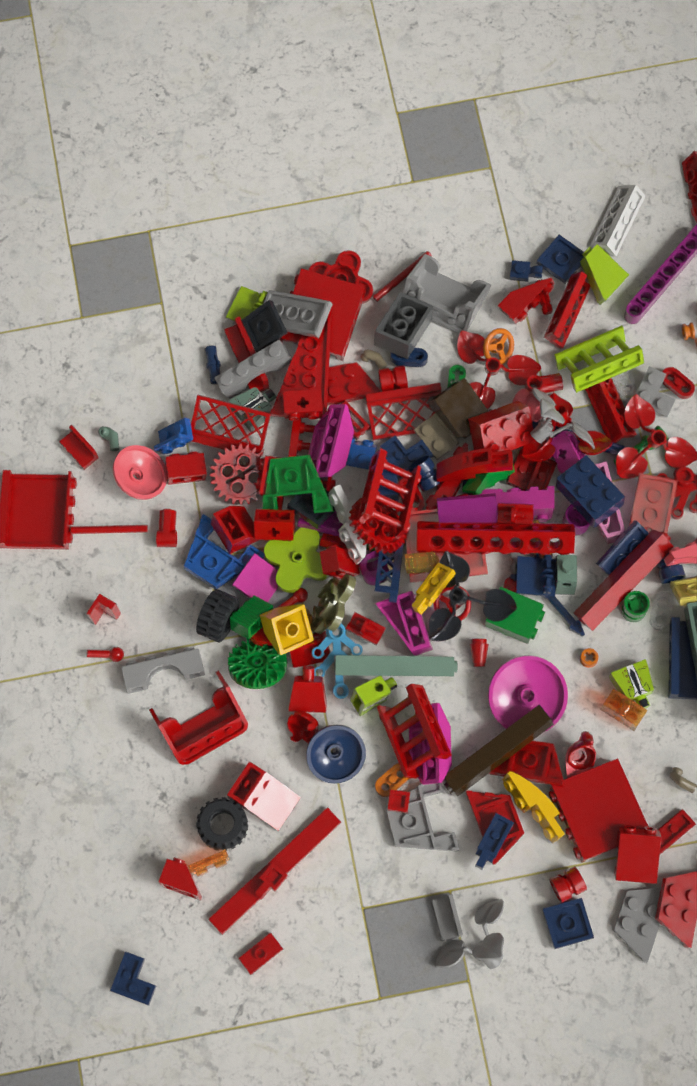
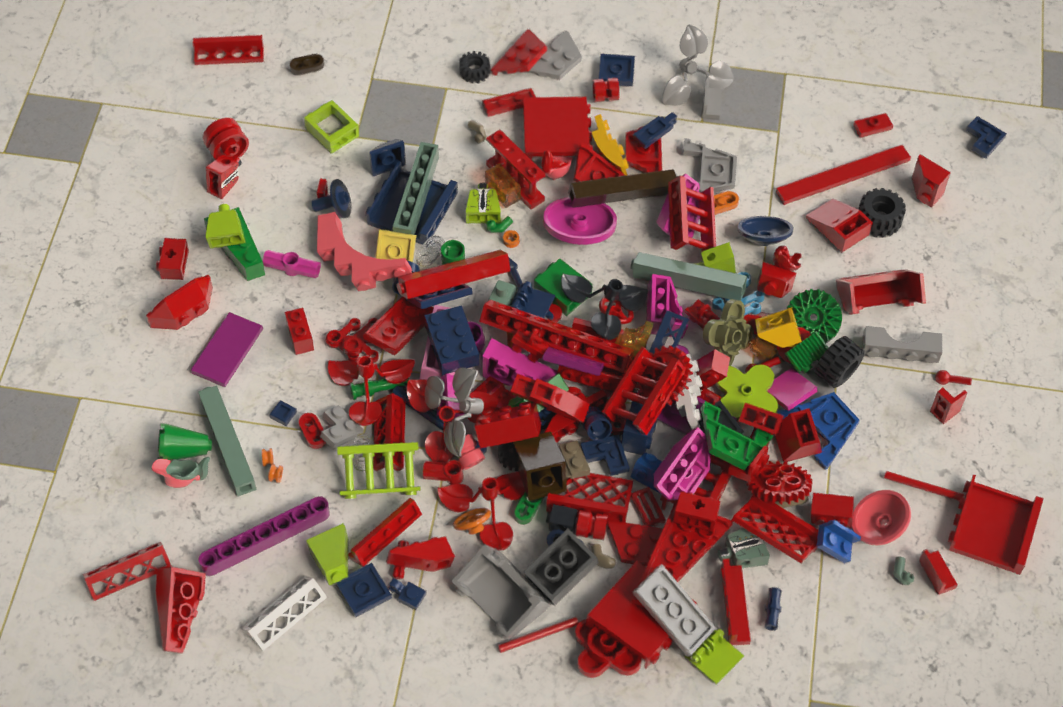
camera: 165 degrees left, 15 degrees down
(167, 532) = (866, 460): red piece -> none
(217, 860) = (908, 191): clear orange plate -> none
(264, 326) = (710, 608): black plate -> none
(268, 359) = (715, 574): light grey arch -> none
(271, 878) = (849, 162): red plate -> none
(398, 801) = (723, 178): red plate -> none
(421, 375) = (561, 518): none -> black brick
(432, 587) = (631, 312): yellow hinge -> none
(479, 652) = (606, 271): red cone -> none
(606, 667) = (498, 227): none -> green arm
(618, 728) = (518, 165): none -> red fence
(638, 854) = (541, 86): red panel -> none

